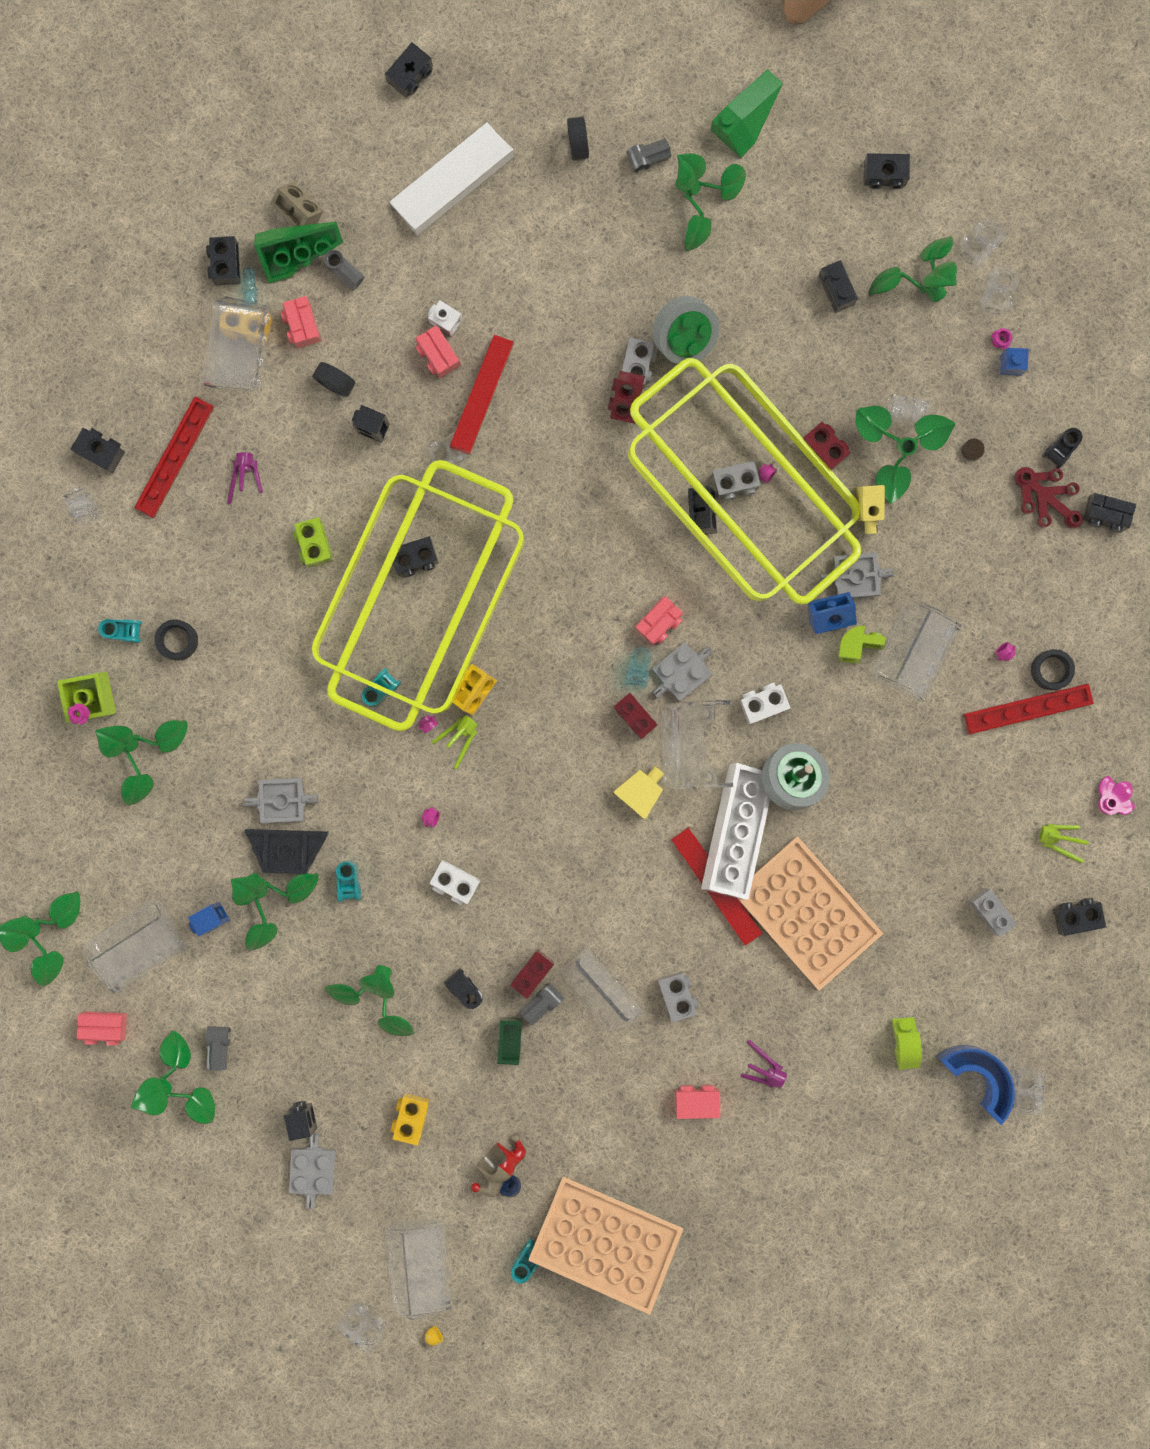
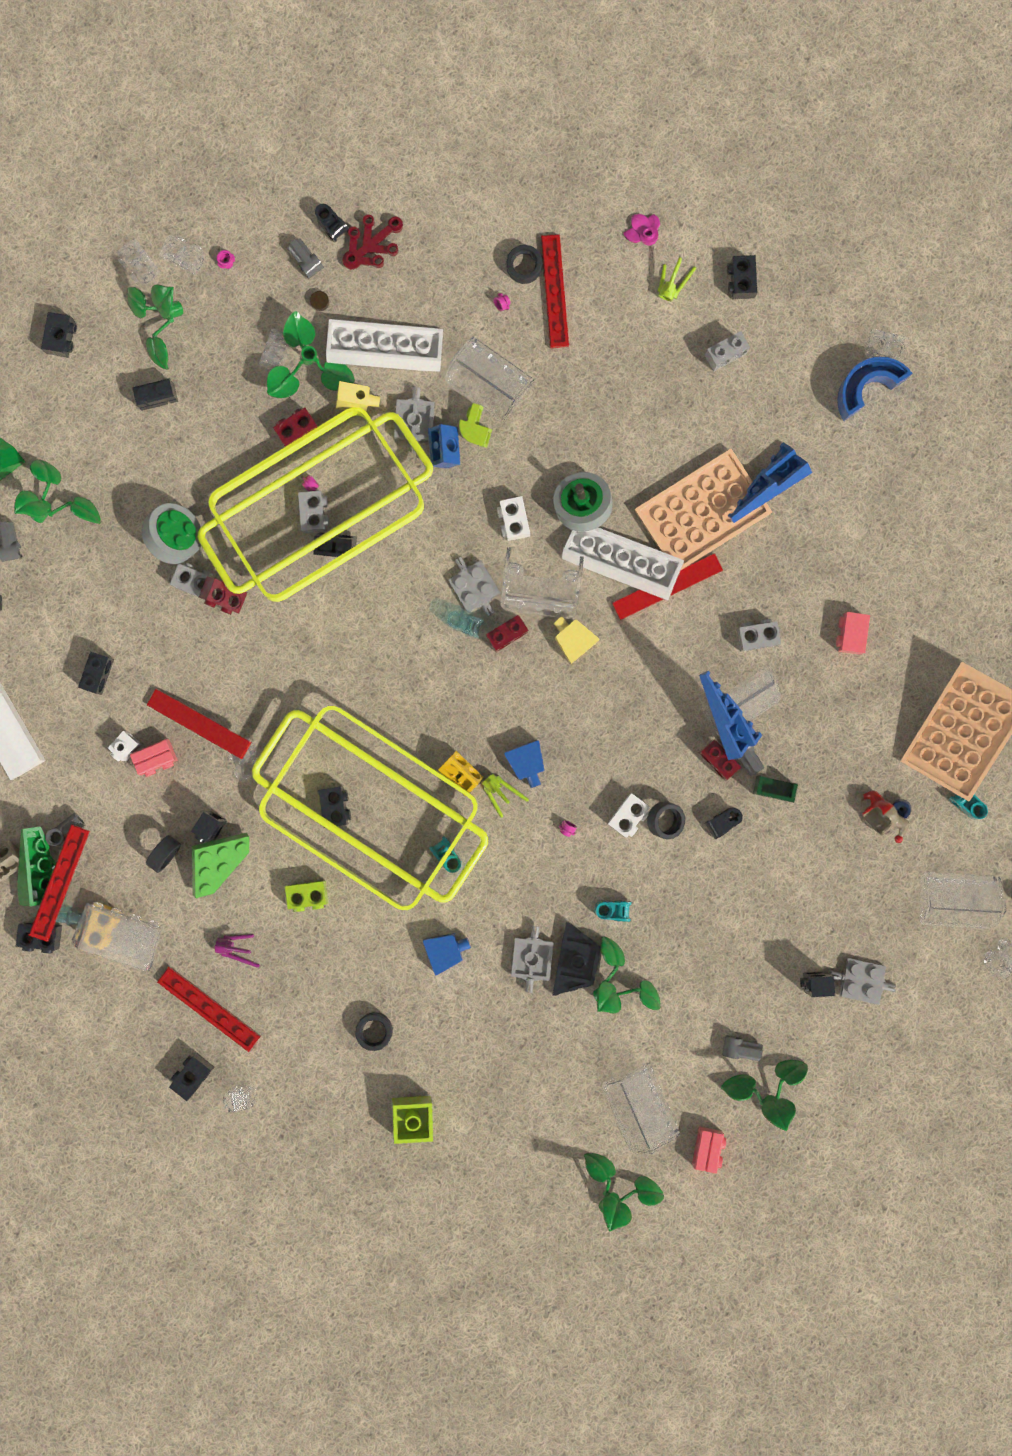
camera: 80 degrees left, 0 degrees up
(84, 714) = (427, 1123): dark pink plate -> none
(119, 739) = (456, 1092): green plant -> none
(124, 631) = (357, 1076): teal piece -> none
(208, 919) = (628, 1039): blue brick -> none
(274, 703) = (445, 951): none -> blue torso
(284, 273) = (59, 883): none -> red tile
(301, 322) = (106, 875): coral brick -> none
(334, 438) = (216, 861): none -> bright green plate
(378, 985) = (709, 895): green plant -> none
(415, 1120) = (831, 883): yellow brick -> none
(427, 723) = (484, 818): dark pink plate -> none
(452, 938) = (653, 820): none -> black tyre
(495, 760) = (527, 762): none -> blue torso
(519, 273) = (95, 673): none -> black brick
(568, 982) = (732, 726): none -> blue wedge
(659, 621) = (426, 599): coral brick -> none
(773, 1076) = (840, 564): magenta plant -> none
(863, 994) = (782, 472): none -> blue wedge
(908, 1043) = (829, 441): lime brick -> none
(934, 529) = (384, 345): none -> white arch
(1014, 361) = (248, 251): blue brick -> none
(1015, 429) = (307, 261): none -> dark grey piece
(1109, 512) = (394, 192): black brick -> none

